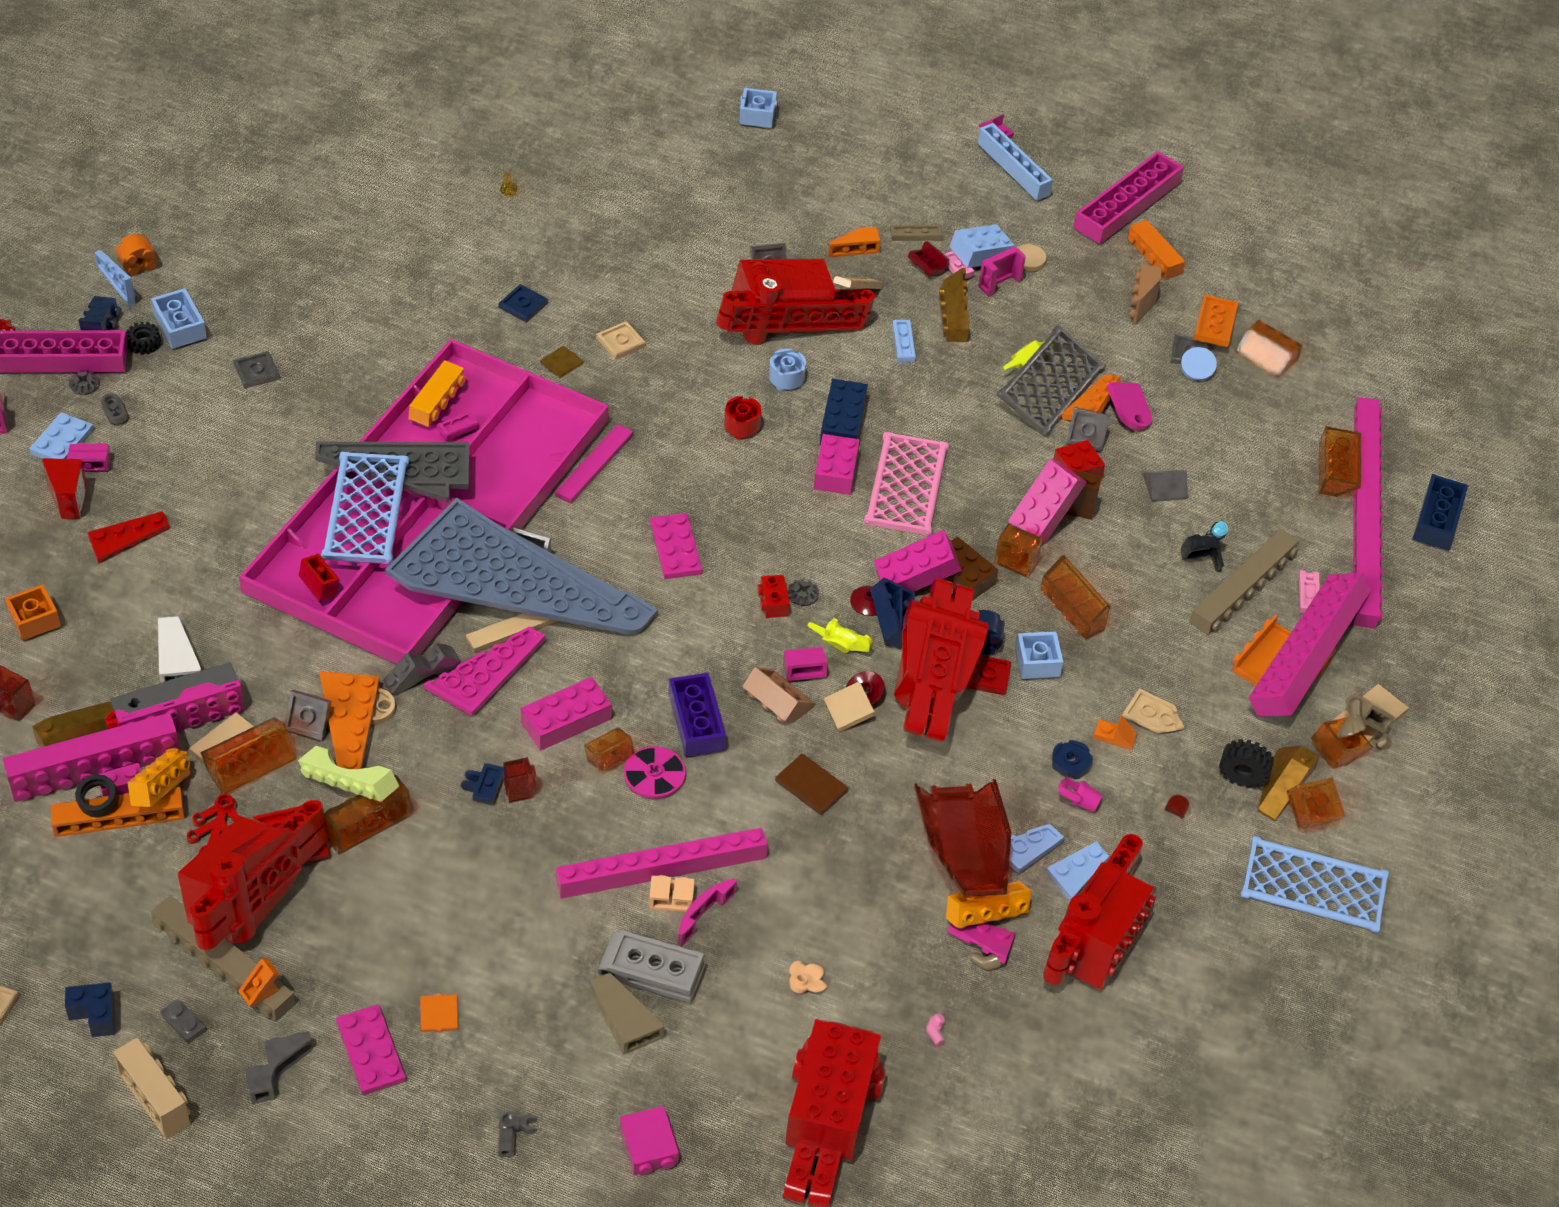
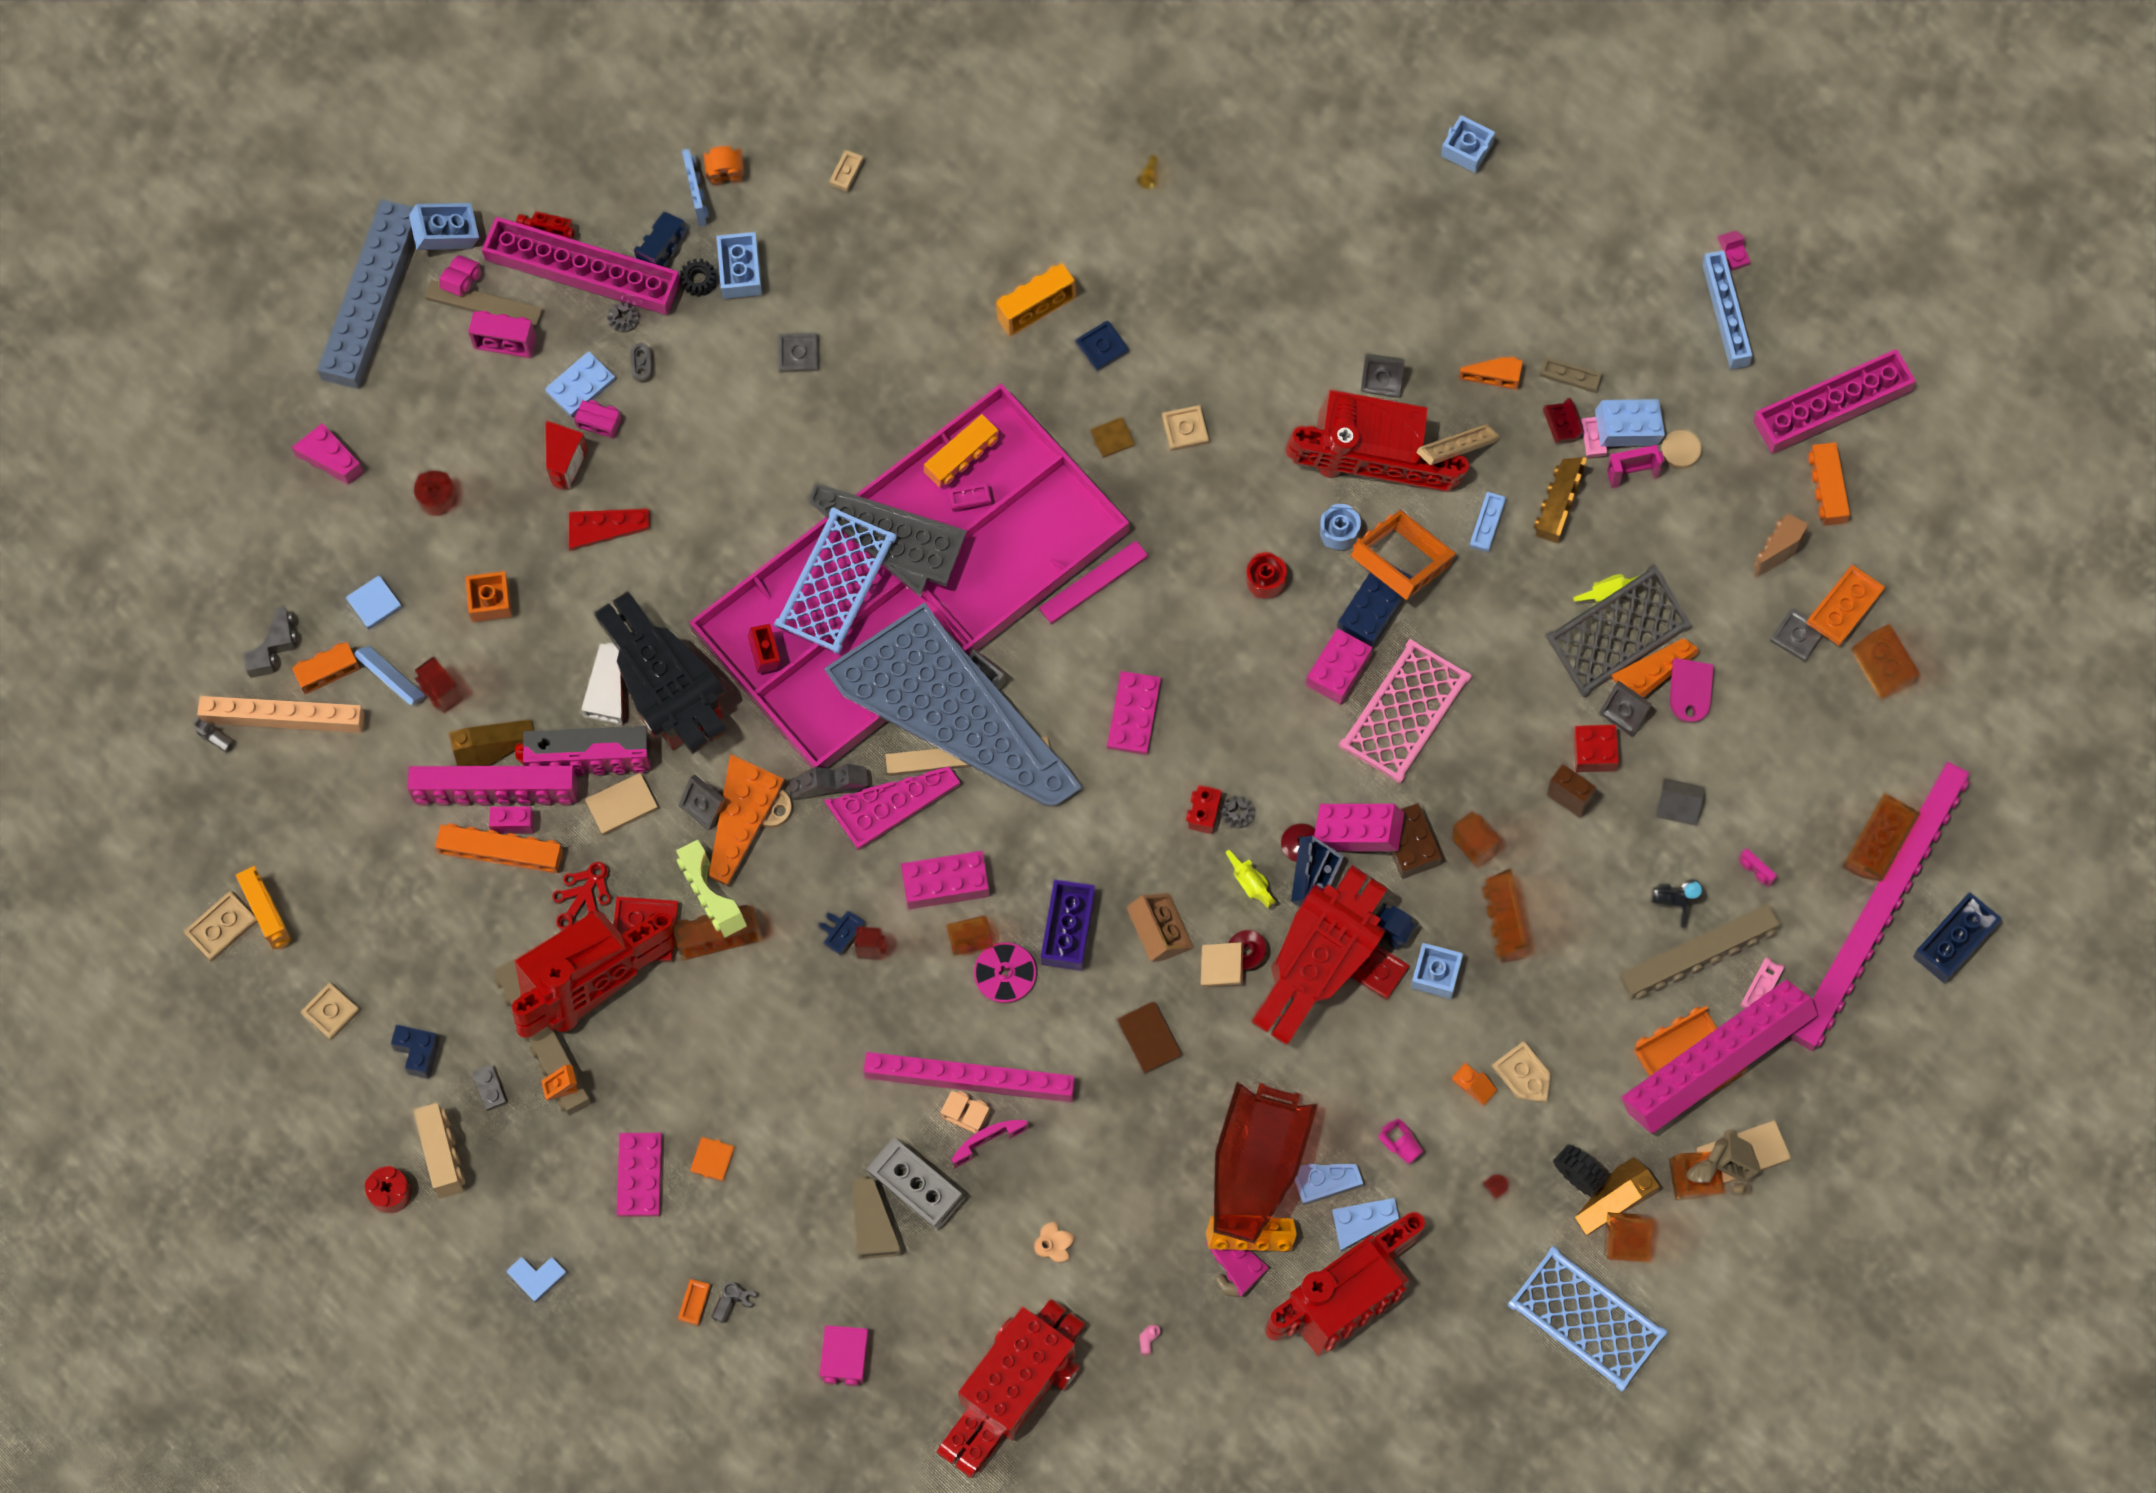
camera: 30 degrees right, 20 degrees up
(91, 782) = (467, 826): black tyre -> none
(108, 1144) = (376, 1188): none -> red brick
(159, 778) = (541, 833): light orange brick -> none
(232, 621) = (664, 677): none -> black piece
(247, 238) = (846, 170): none -> tan plate
(249, 755) = (634, 828): clear orange slope -> none
(281, 1055) = (557, 1155): flat silver arch -> none
(298, 1183) = (536, 1282): none -> light blue tile
(453, 280) = (1035, 299): none -> light orange brick
(474, 1146) = (694, 1302): none -> orange tile
(805, 663) = (1199, 900): dark pink piece -> none
(850, 369) = (1417, 536): none -> orange window
(1047, 500) = (1527, 795): brick -> none
(1069, 768) = (1415, 1086): dark blue plate -> none
(1198, 364) = (1795, 657): light blue tile -> none
(1255, 510) = (1755, 865): none -> dark pink plate

